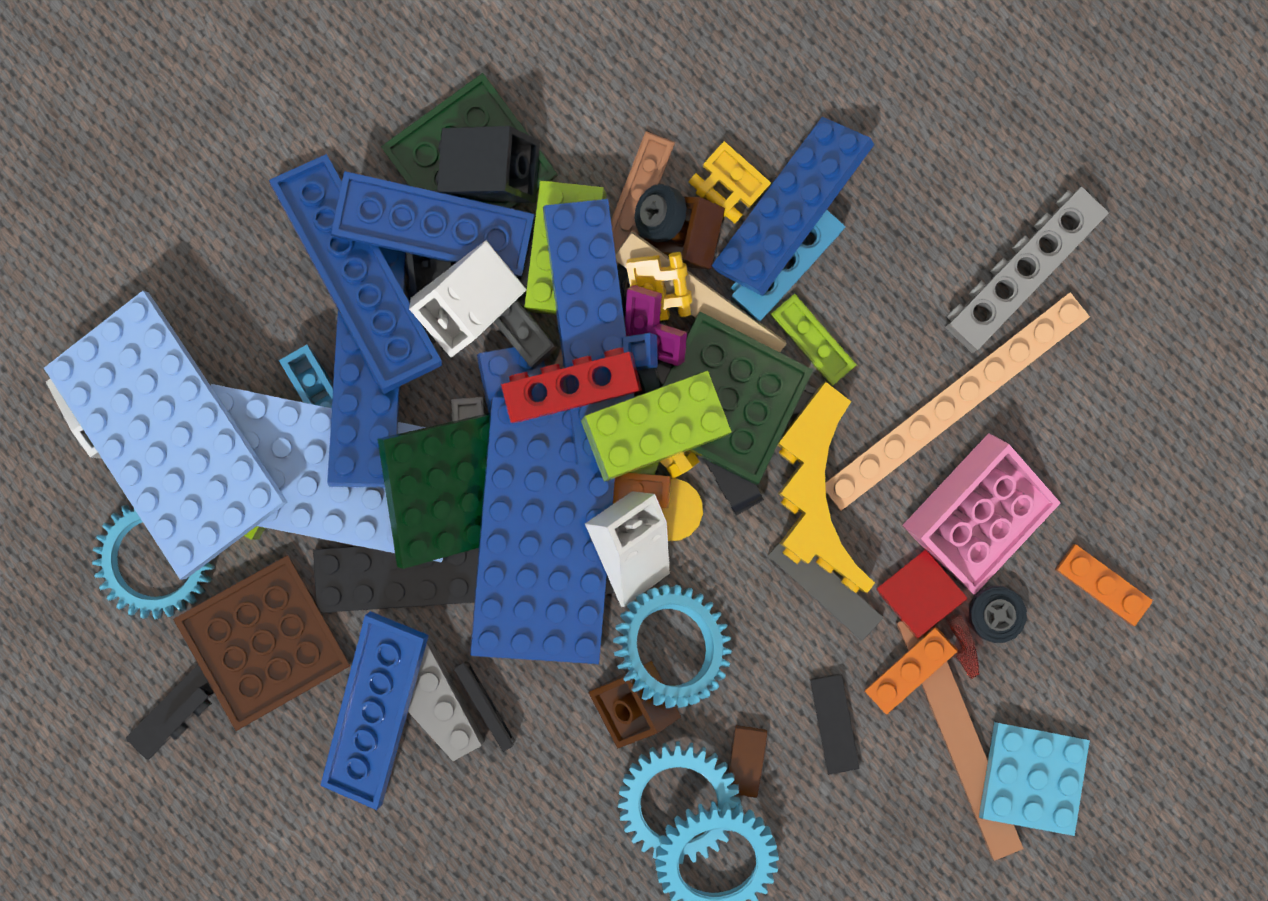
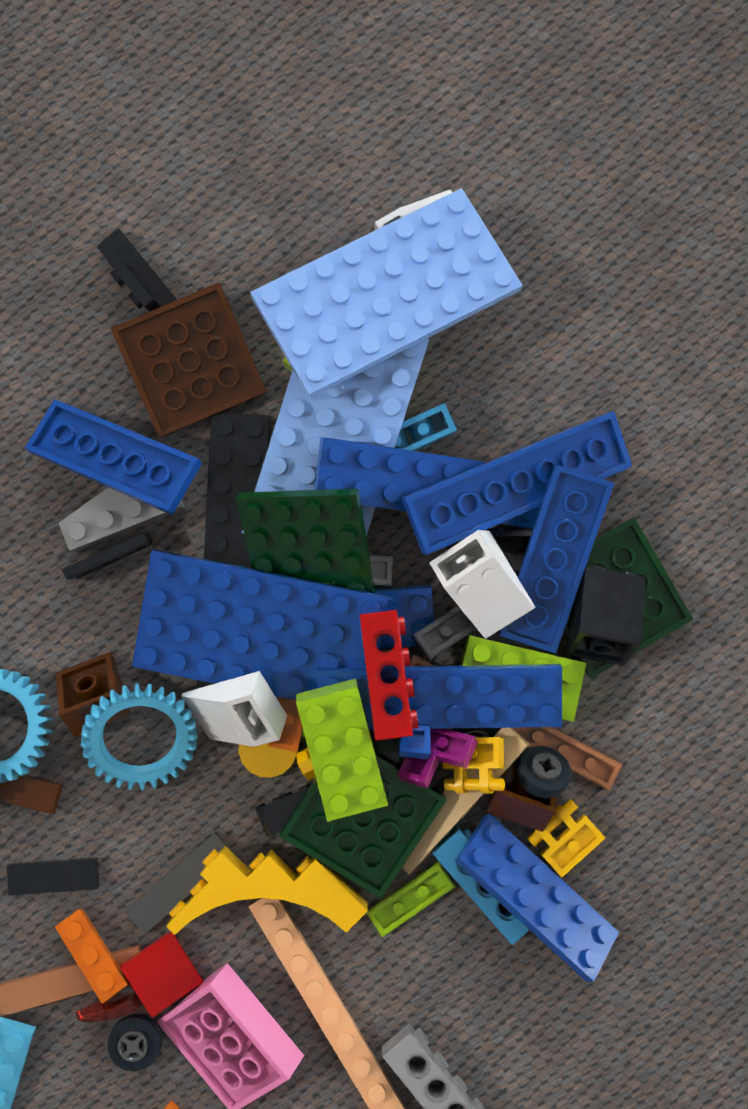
camera: 95 degrees right, 0 degrees up
(126, 593) = (255, 237): medium azure piece -> none

